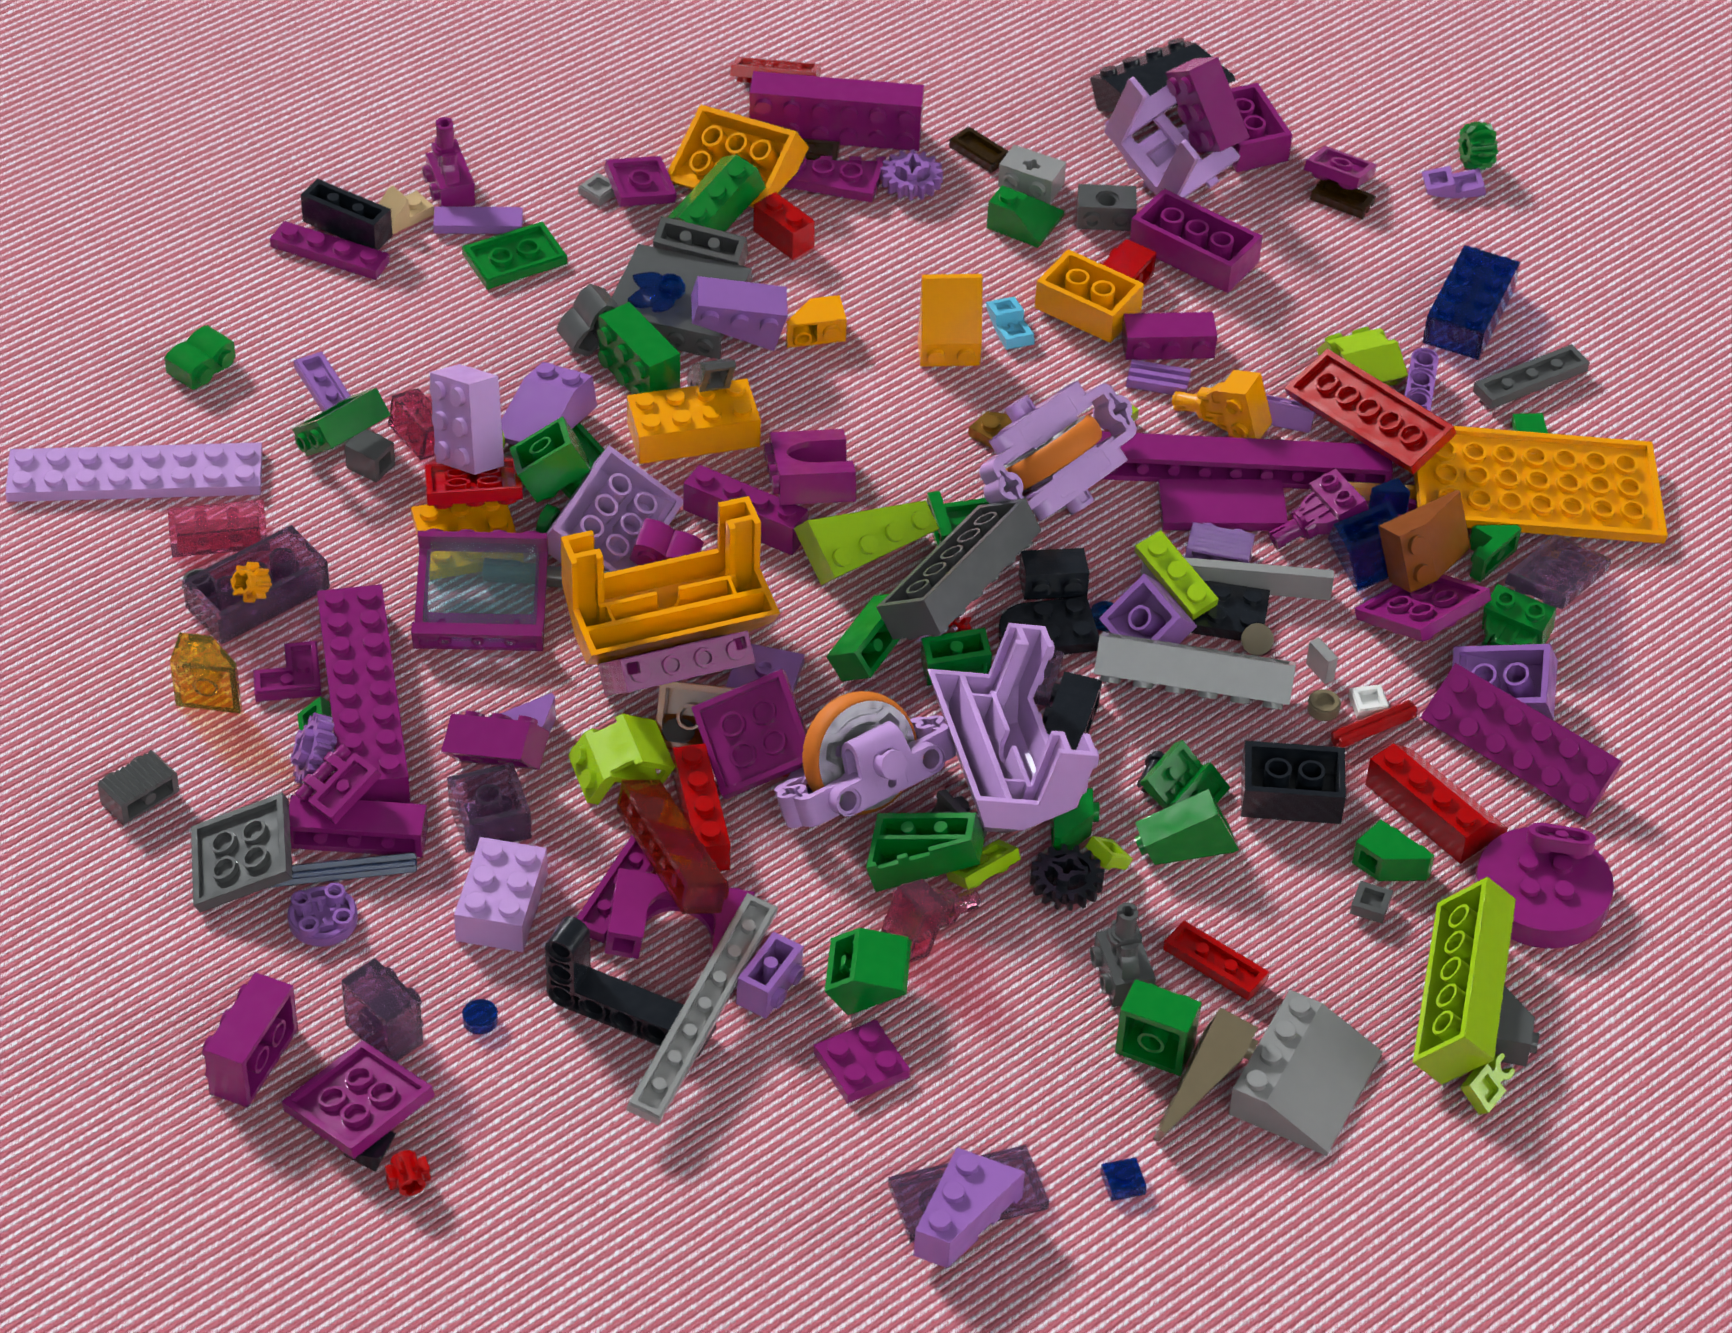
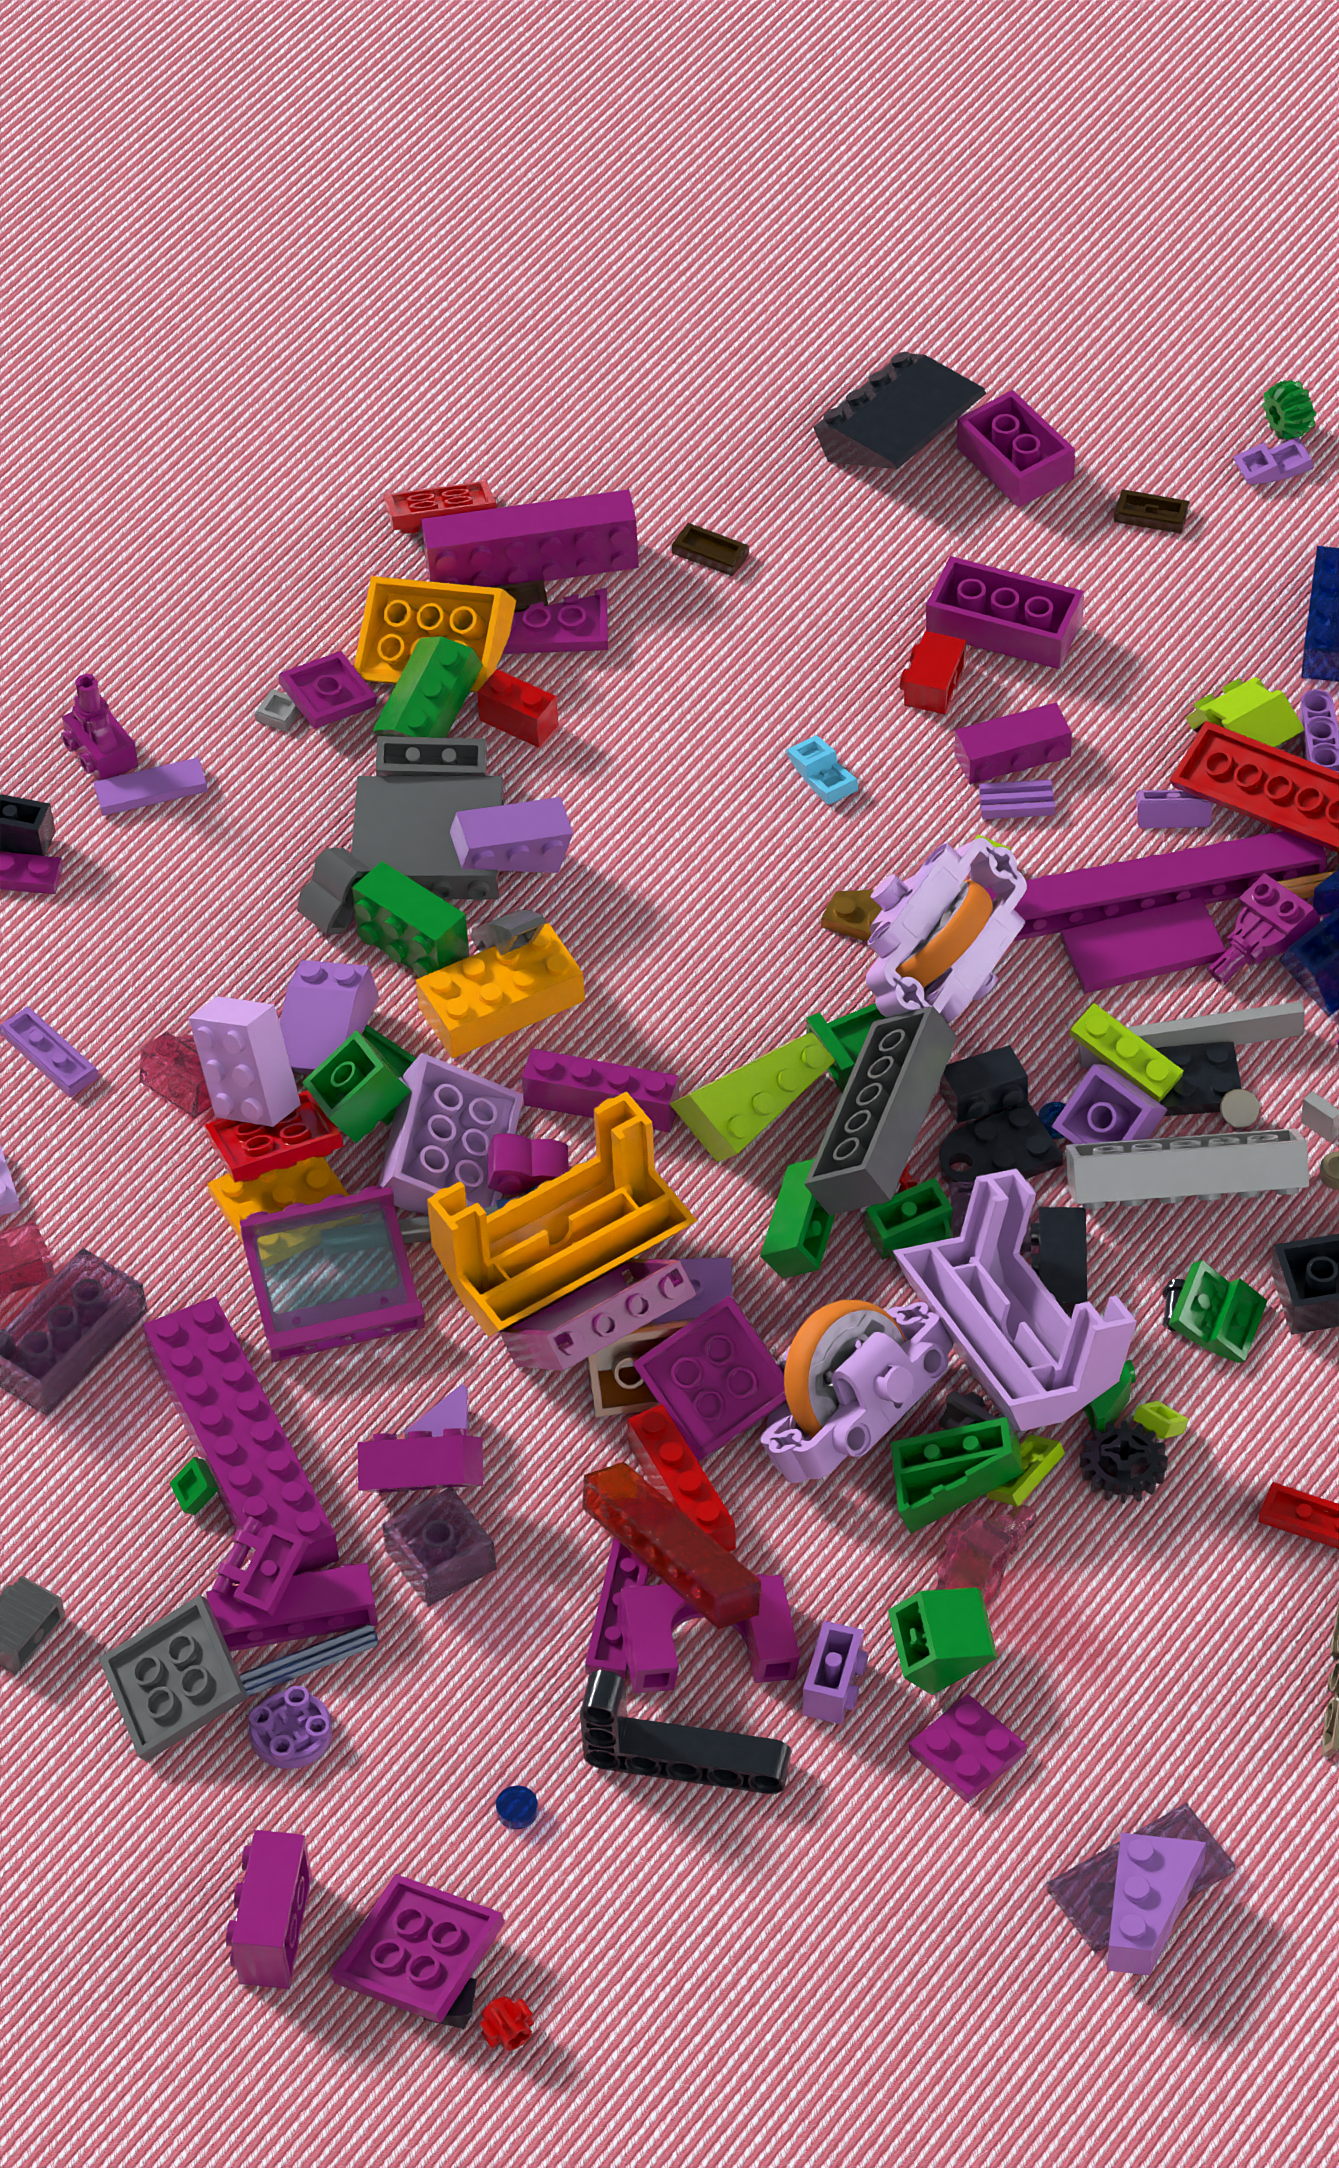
camera: 10 degrees left, 5 degrees up
(204, 675) = (50, 1464): clear yellow slope -> none
(251, 582) = (68, 1336): light orange gear -> none
(296, 680) = (151, 1437): magenta tile -> none
(312, 745) = (210, 1525): medium lavender gear -> none
(340, 422) = (90, 1097): green window -> none
(370, 455) = (134, 1128): dark grey brick -> none
(382, 1010) = (410, 1833): clear purple brick -> none
(406, 209) = (62, 791): tan slope -> none
(501, 894) = (490, 1651): lavender brick -> none
(514, 255) = (210, 822): green tile -> none
(547, 518) = (374, 1161): green tile -> none
(620, 752) = (566, 1443): lime piece -> none
(657, 291) = (403, 834): clear blue plate -> none
(674, 733) = (614, 1394): dark grey tile -> none
(702, 1009) = (774, 1736): light grey tile -> none
(810, 467) = (657, 1045): magenta arch -> none
(817, 322) = (602, 825): light orange slope -> none
(911, 174) = (644, 604): medium lavender gear -> none
(950, 320) = (760, 790): light orange slope -> none
(1022, 216) = (791, 627): green slope -> none
(1032, 173) = (784, 569): light grey brick -> none
(1088, 295) = (905, 714): light orange brick -> none
(1105, 207) = (885, 592): dark grey brick -> none
(1121, 955) = (1223, 1551): dark grey brick -> none
(1123, 1179) = (1306, 1814): clear blue plate -> none
(1158, 1027) = (1290, 1623): green brick -> none
(1166, 155) = (935, 498): lavender piece -> none
(1186, 831) = (1239, 1371): green slope -> none
(1206, 105) = (972, 440): magenta brick -> none
(1219, 543) = (1159, 999): medium lavender brick -> none
(1232, 405) = (1120, 819): light orange brick -> none
(1340, 167) = (1139, 475): magenta plate -> none

